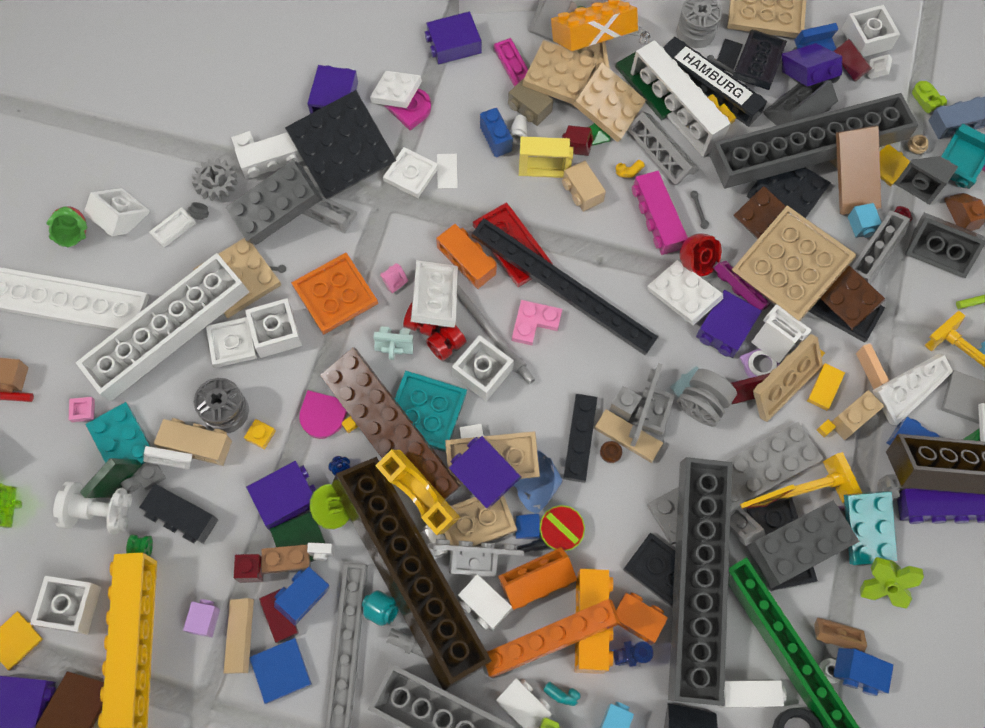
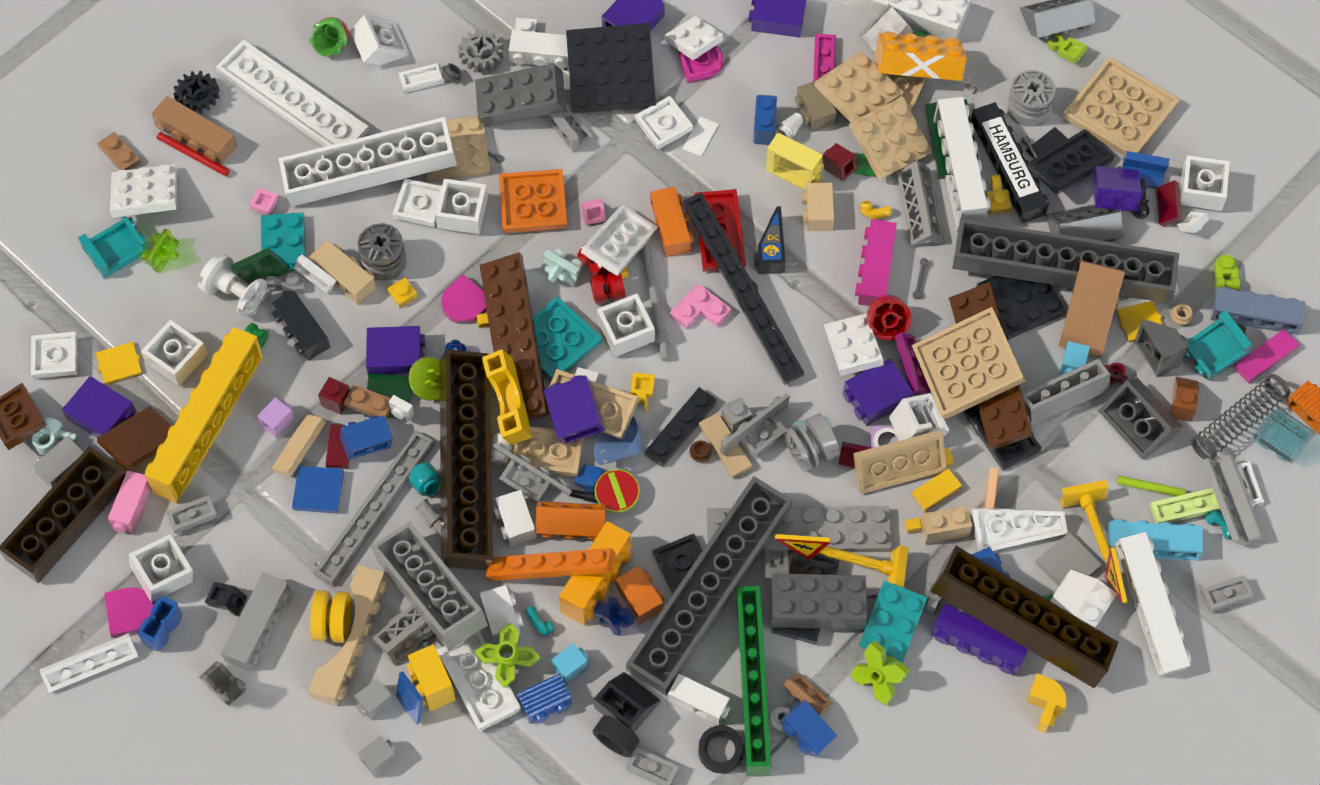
camera: 30 degrees right, 5 degrees down
(528, 418) = (643, 387): none -> yellow plate
(566, 240) = (771, 251): none -> slope

